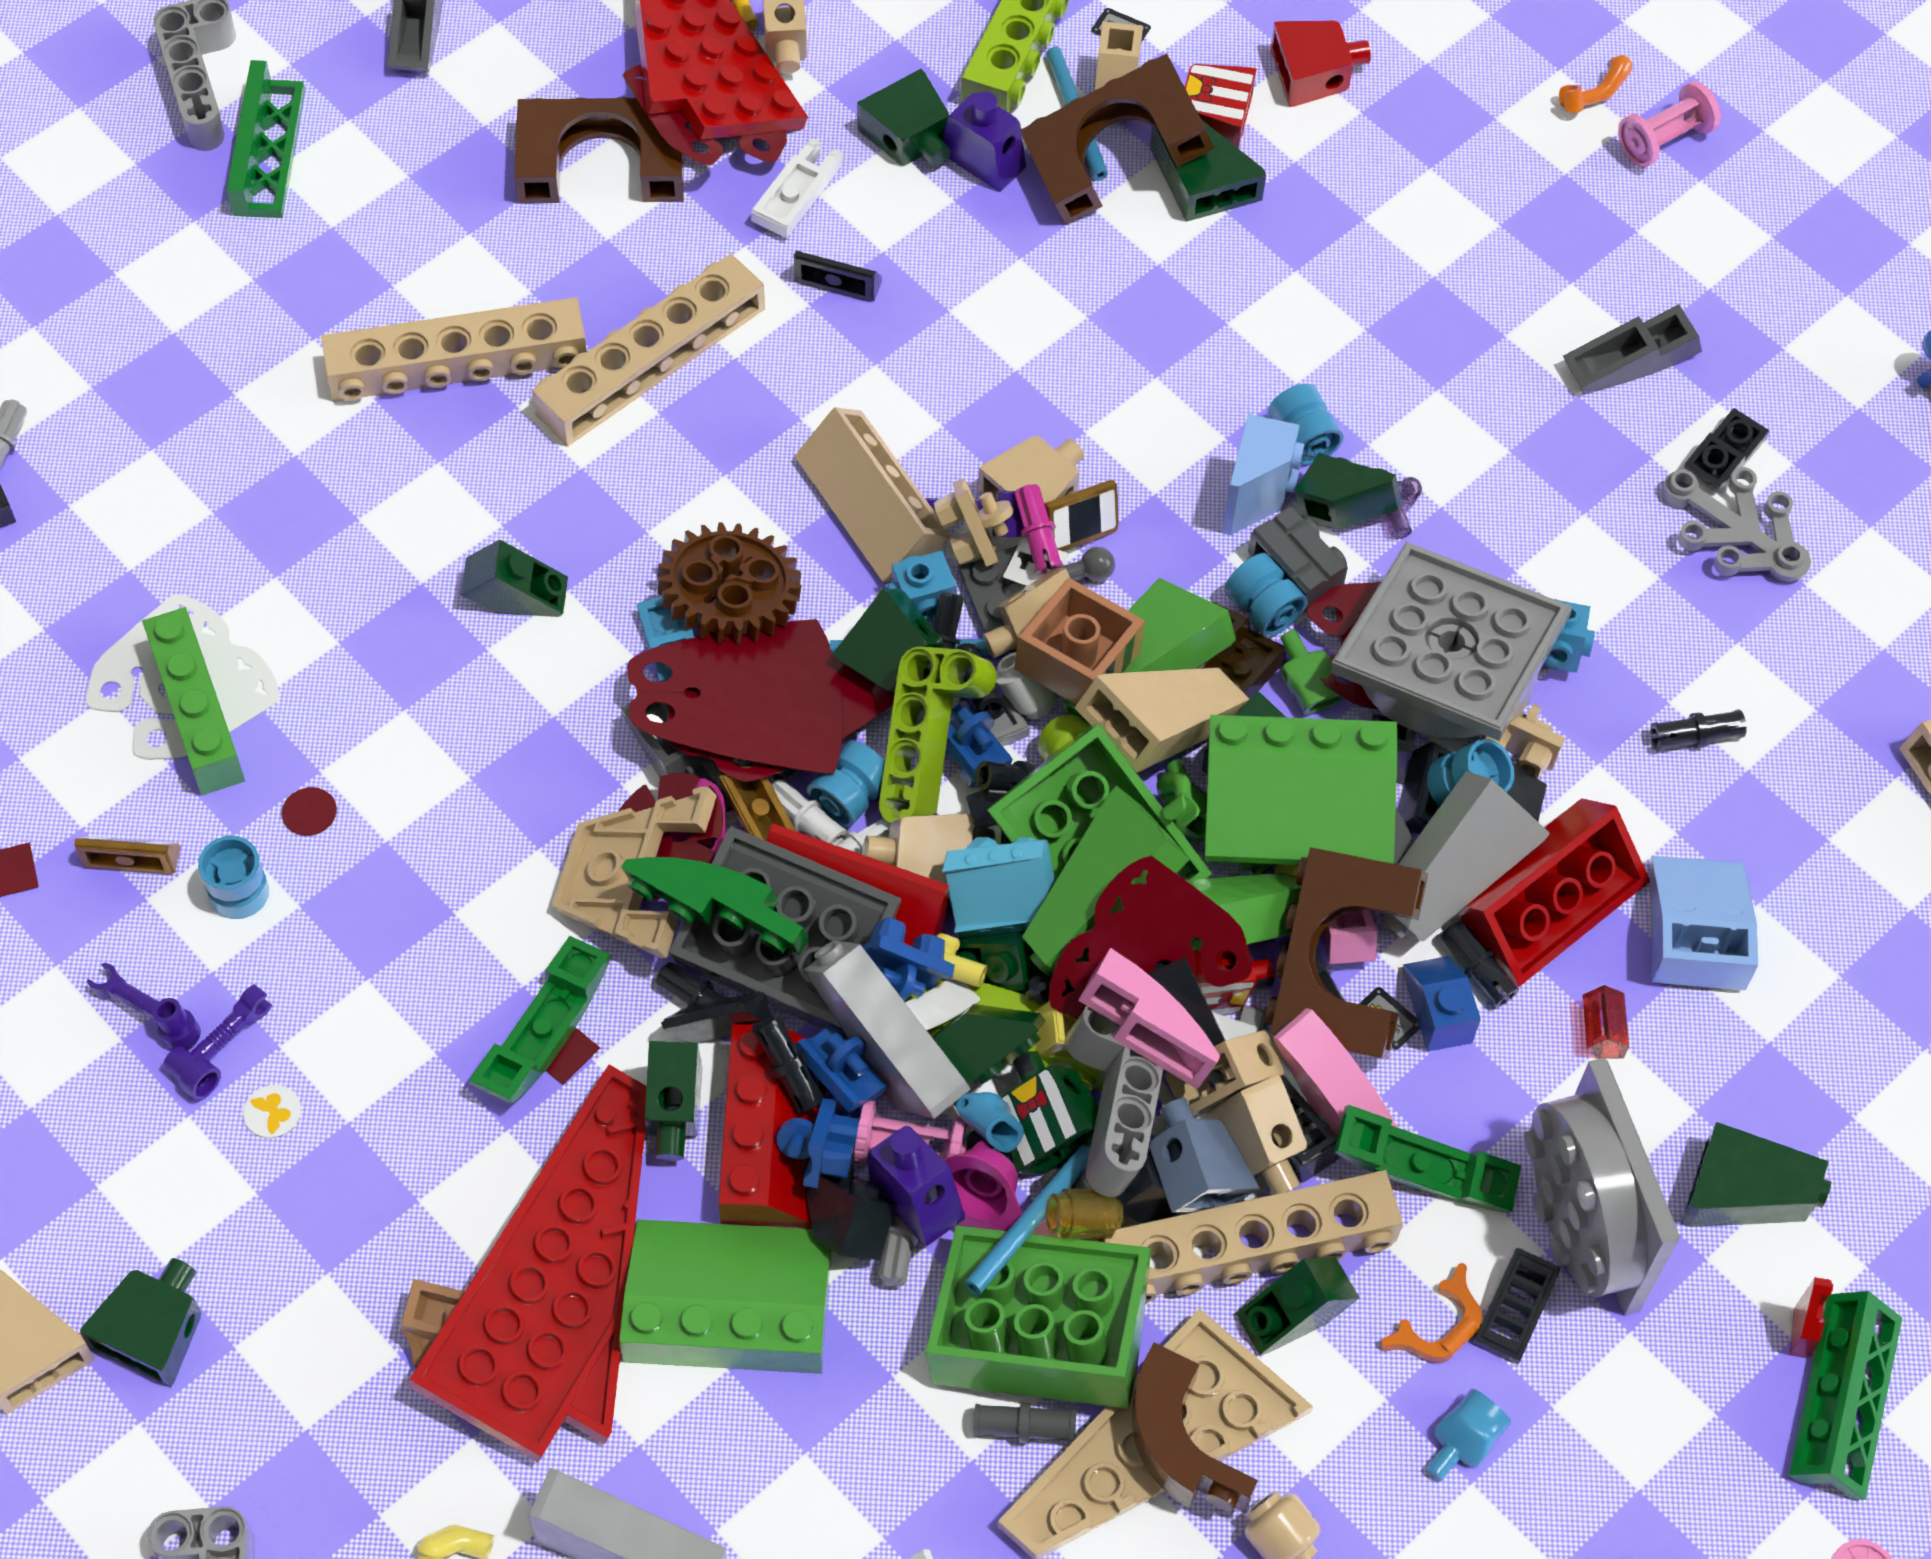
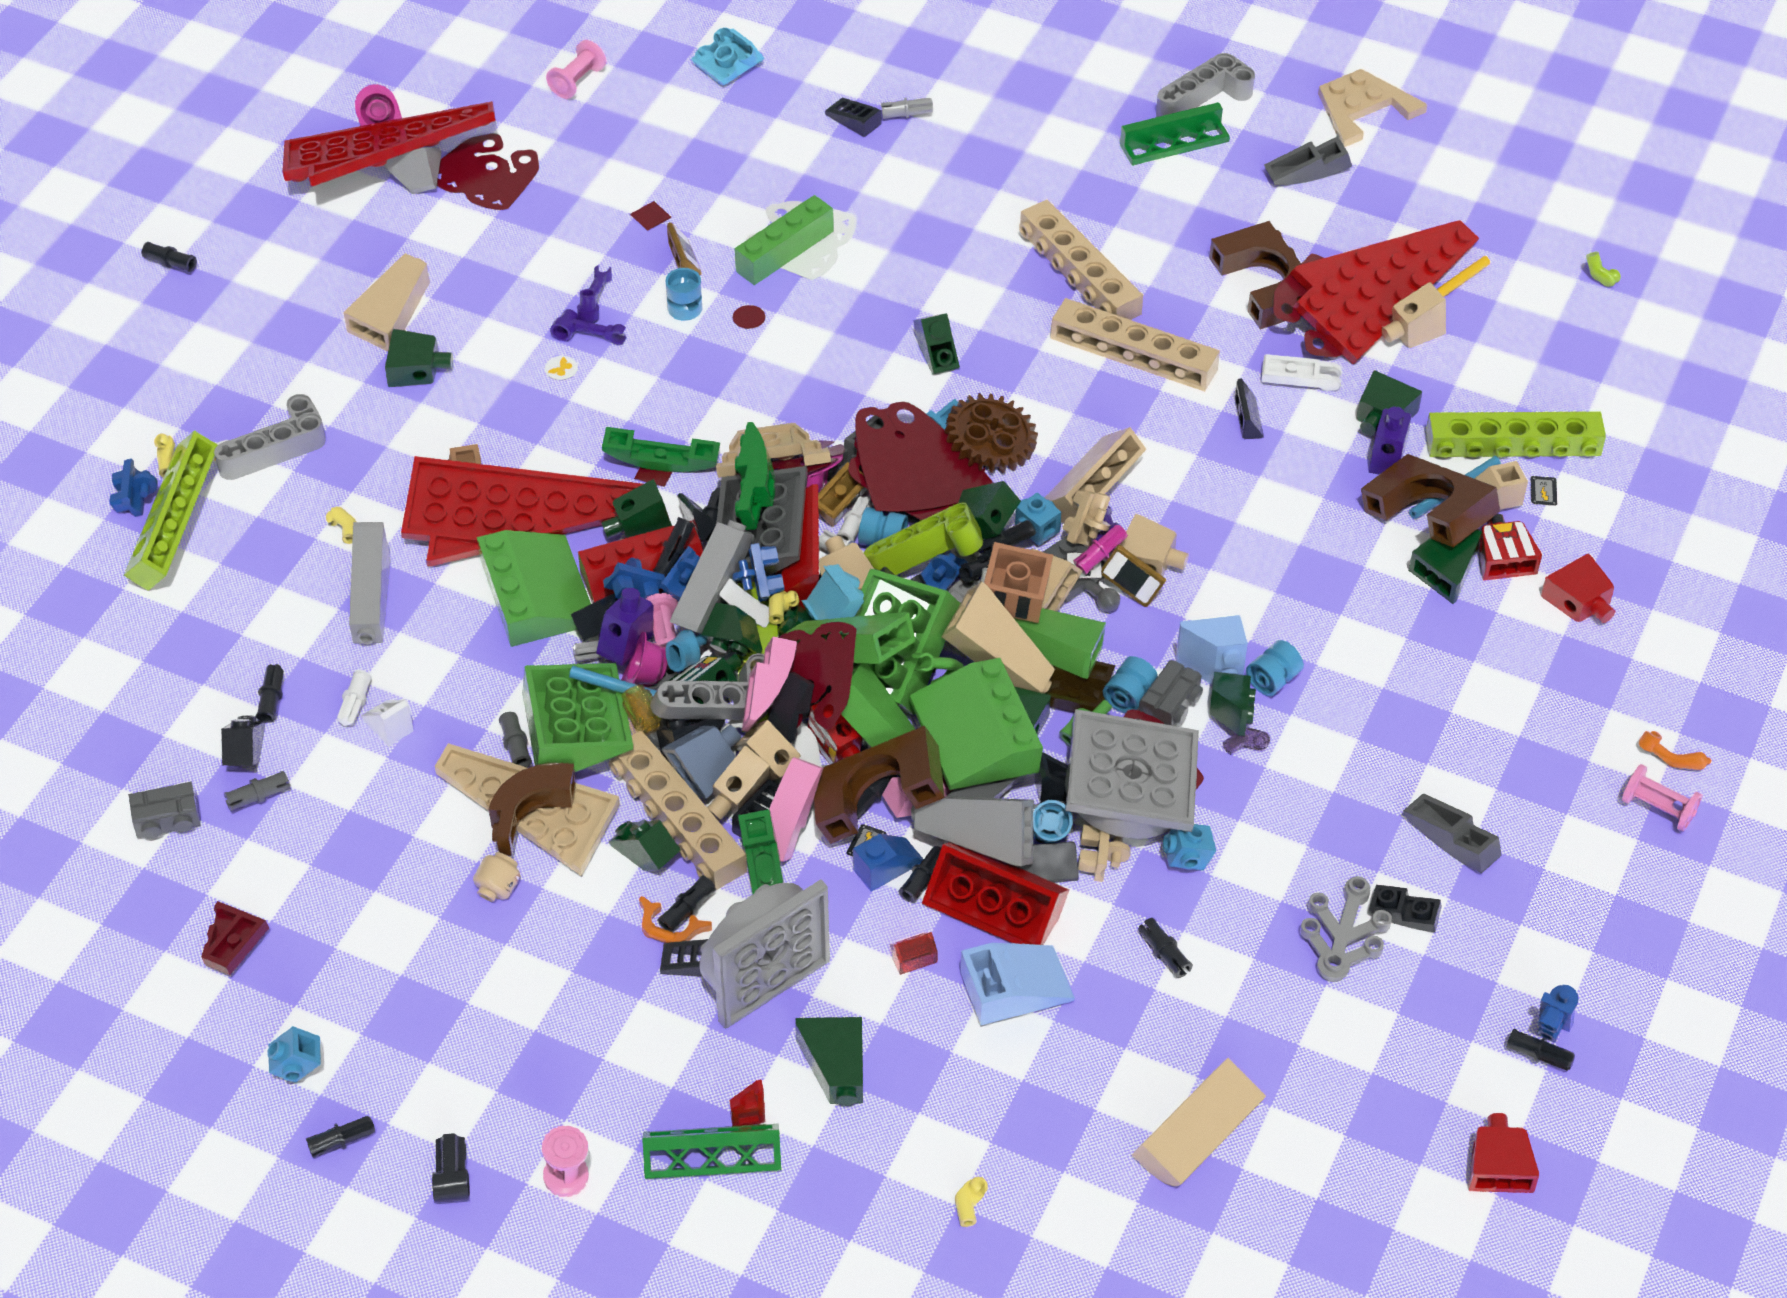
camera: 70 degrees right, 10 degrees down
(1406, 1255) = (686, 904): none -> black pin
(1468, 1433) = (599, 955): dark azure piece -> none

